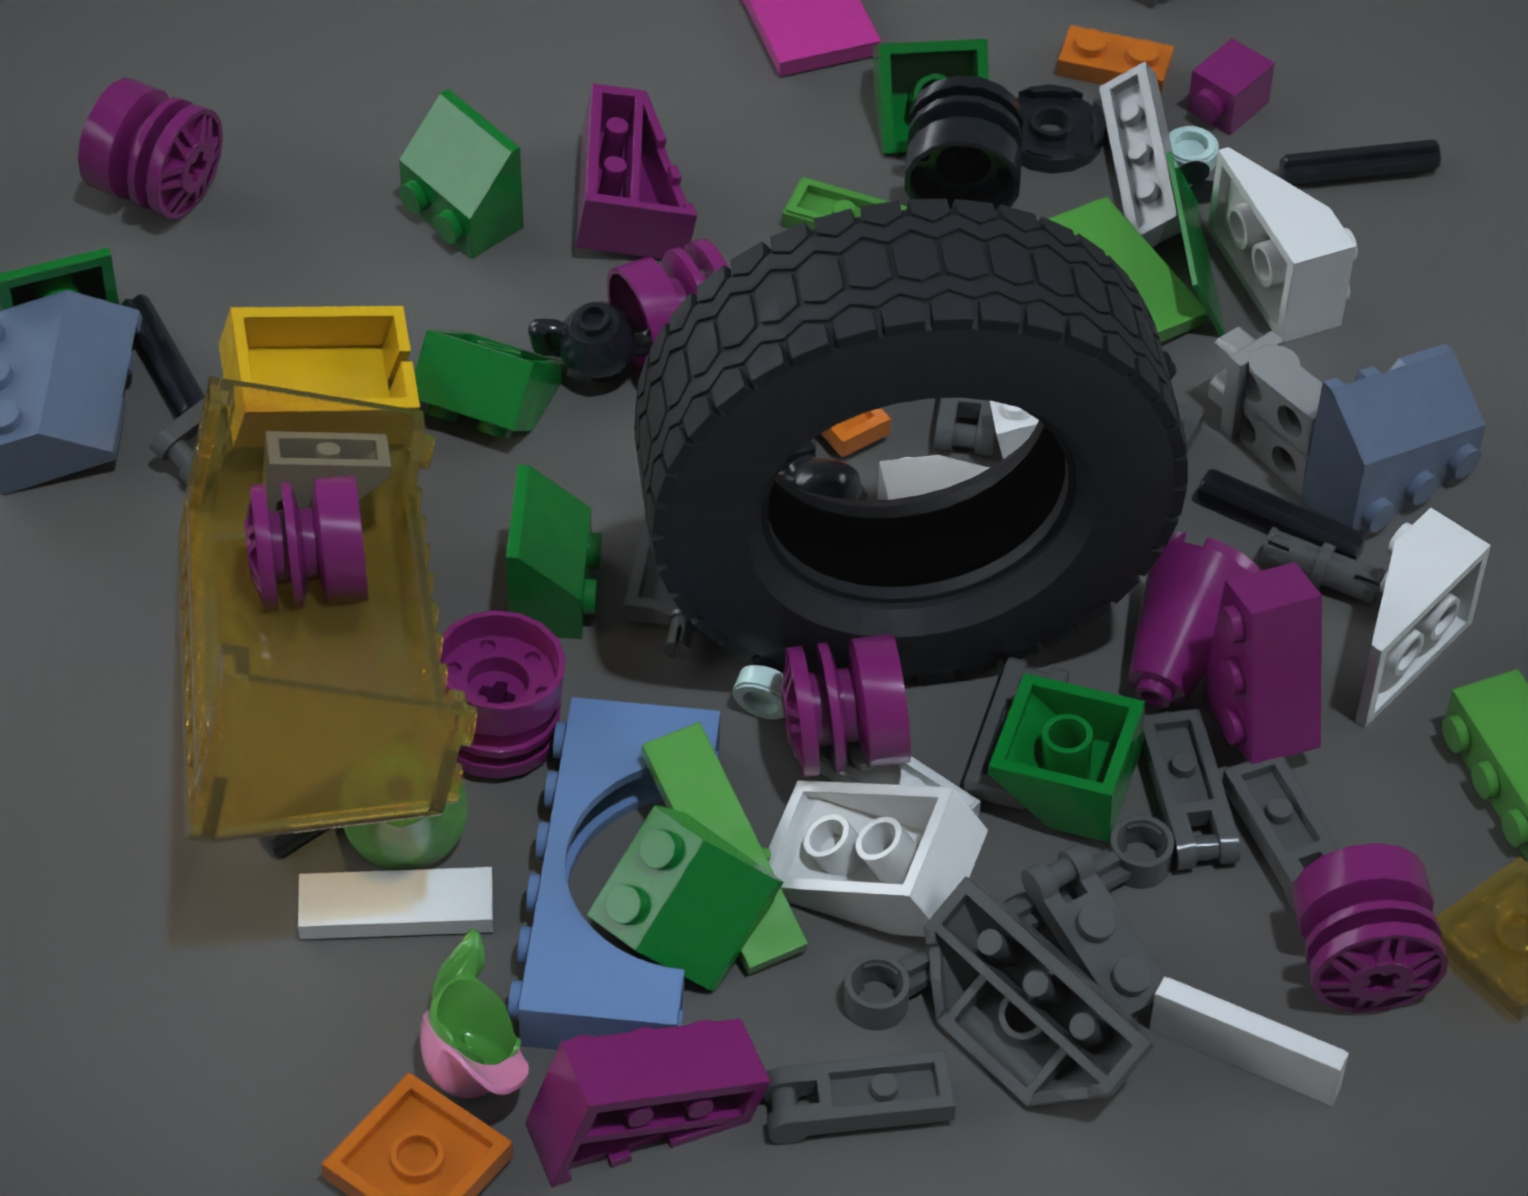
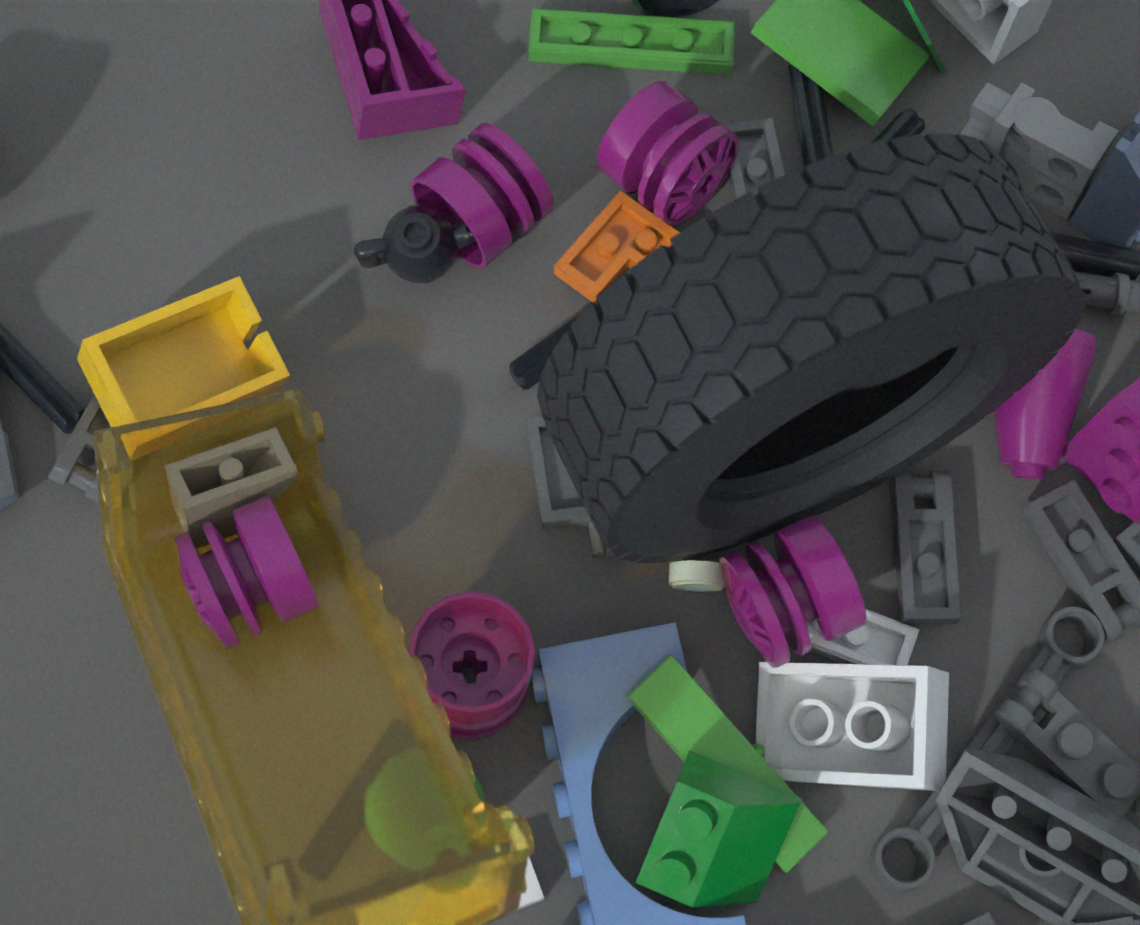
camera: 20 degrees left, 20 degrees up
(463, 176) = (234, 100): green slope -> none
(485, 381) = (331, 311): green slope -> none
(551, 555) = (464, 498): green slope -> none
(1069, 754) = (992, 569): green slope -> none

